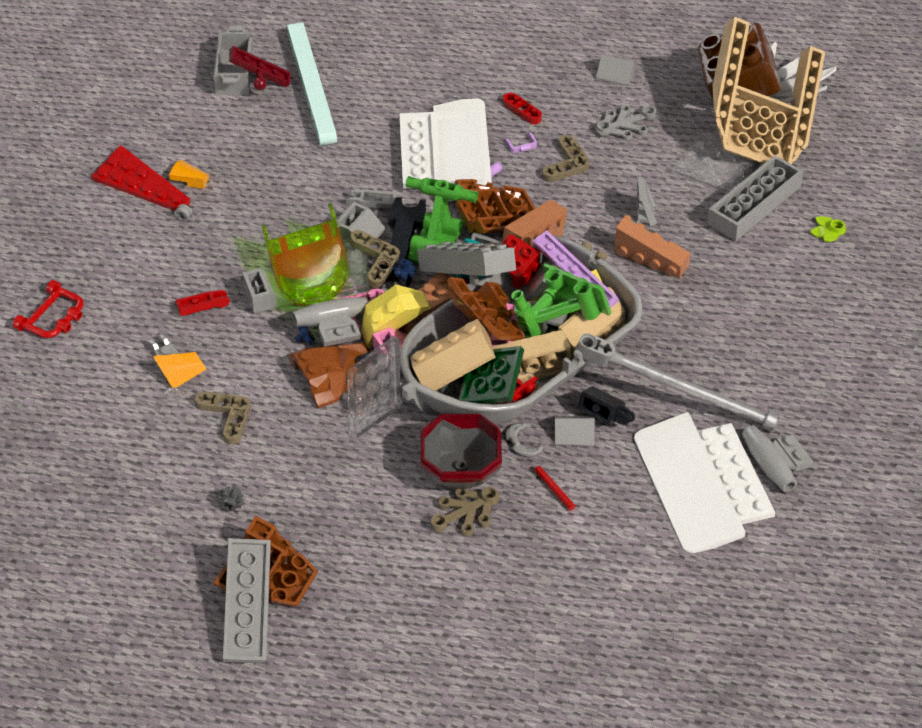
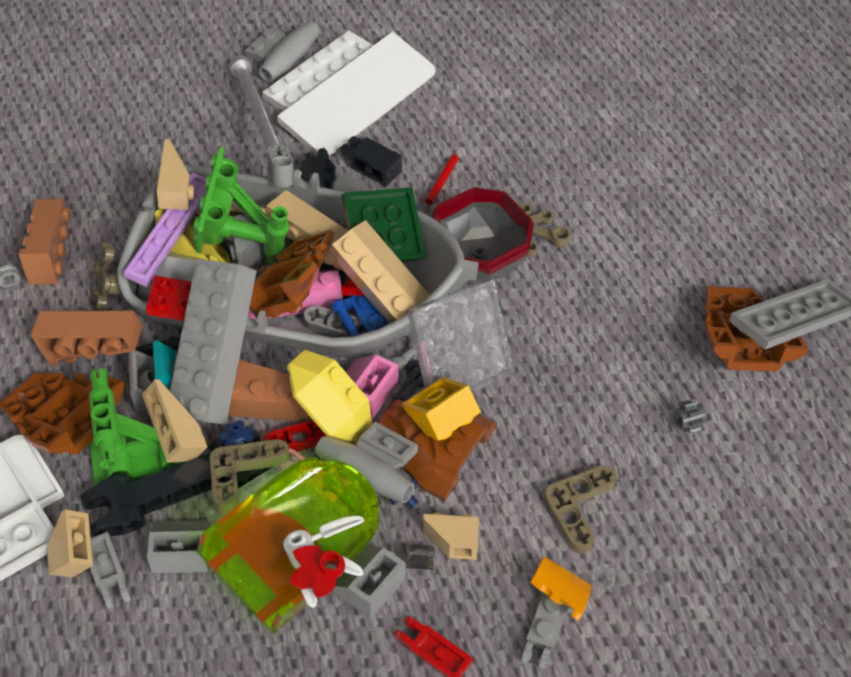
camera: 125 degrees left, 5 degrees up
(257, 341) = (453, 534): none -> tan slope
(261, 324) = (420, 556): none -> clear smoke slope
(272, 245) = (314, 572): none -> red plate
(296, 259) = (303, 538): none -> white plant
(334, 354) = (442, 408): none -> yellow slope
(391, 182) = (70, 545): none -> tan slope
(418, 236) = (174, 426): none -> tan slope
(602, 451) = (373, 160): none -> black hinge
(610, 275) = (174, 181): none -> tan slope

